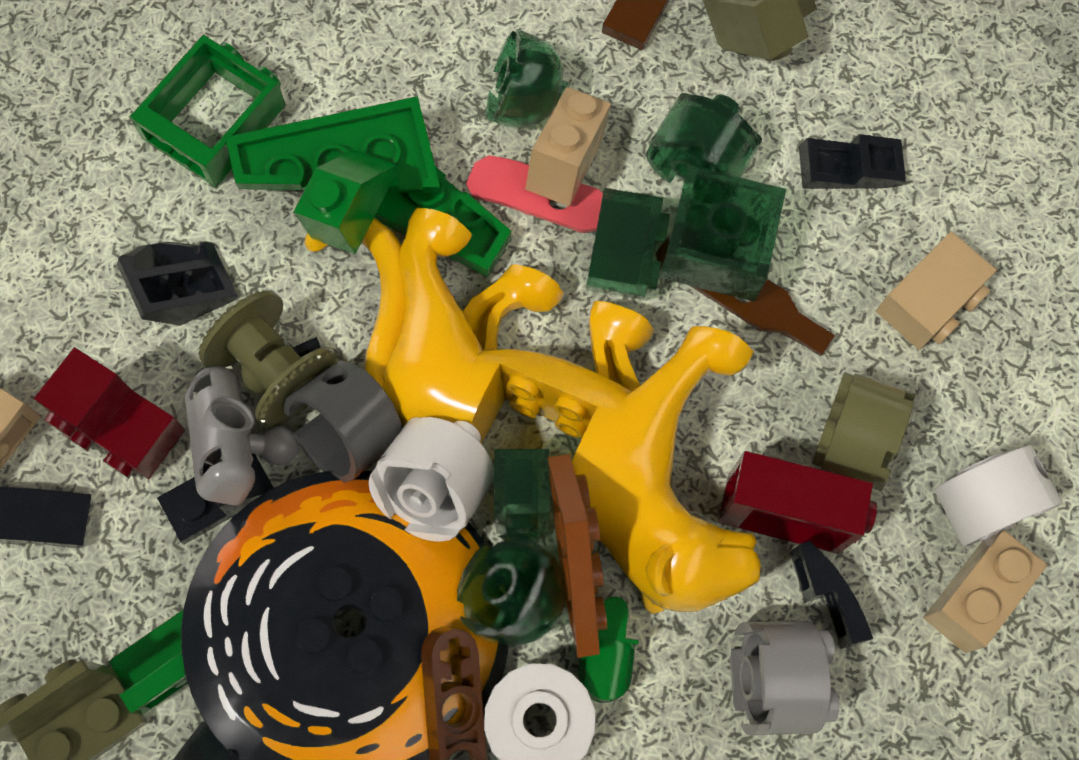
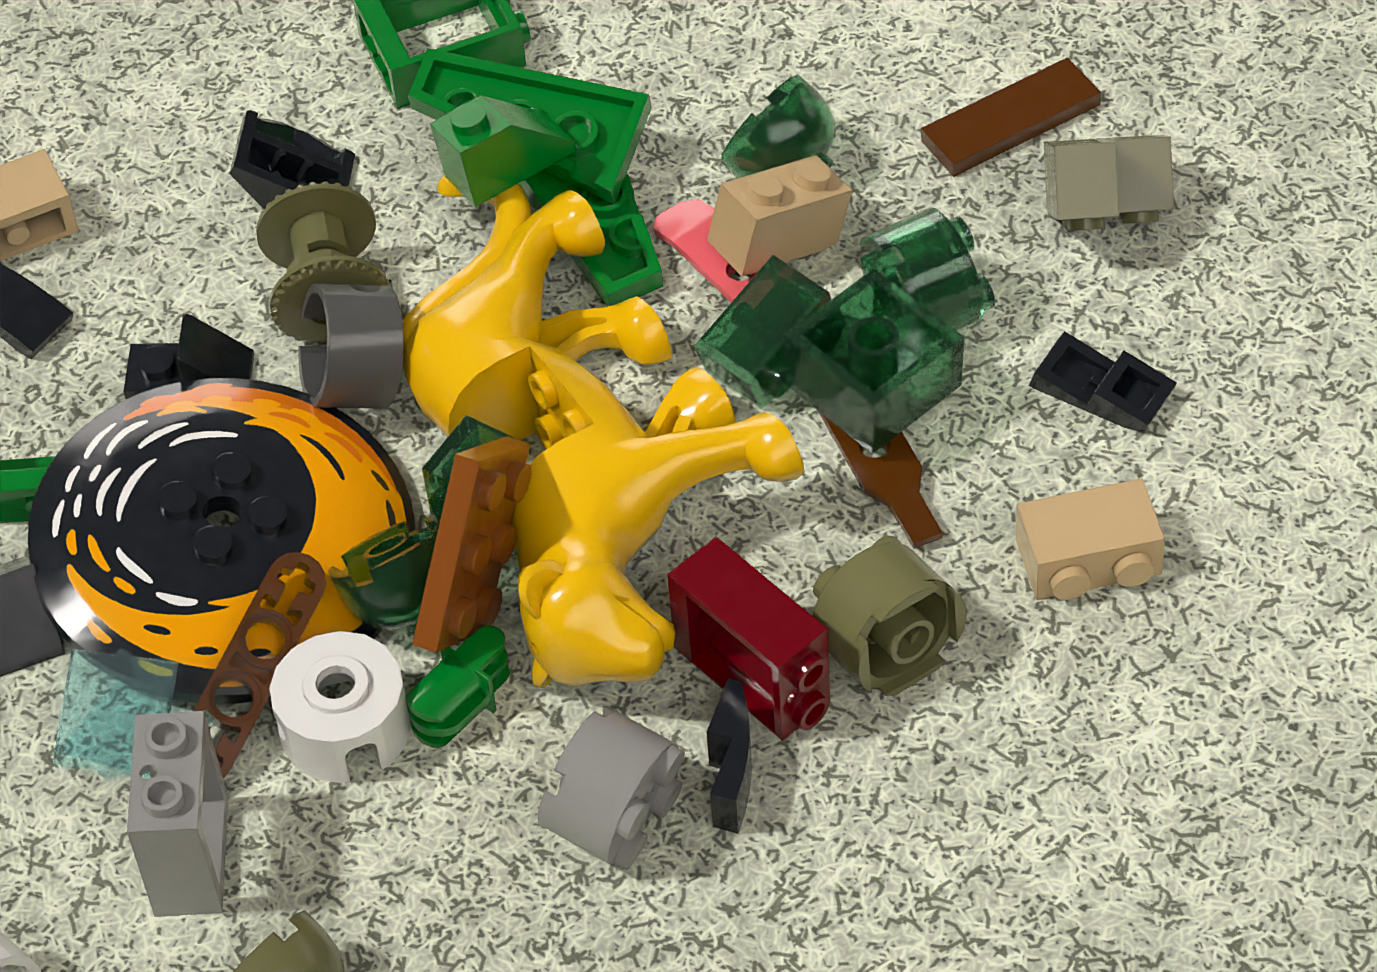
camera: 40 degrees right, 20 degrees down
(100, 409) = (135, 242): dark red brick -> none
(222, 437) = (226, 310): light grey piece -> none
(433, 477) = (390, 422): white brick -> none
(985, 592) = (903, 835): tan brick -> none
(997, 494) = (986, 732): white piece -> none

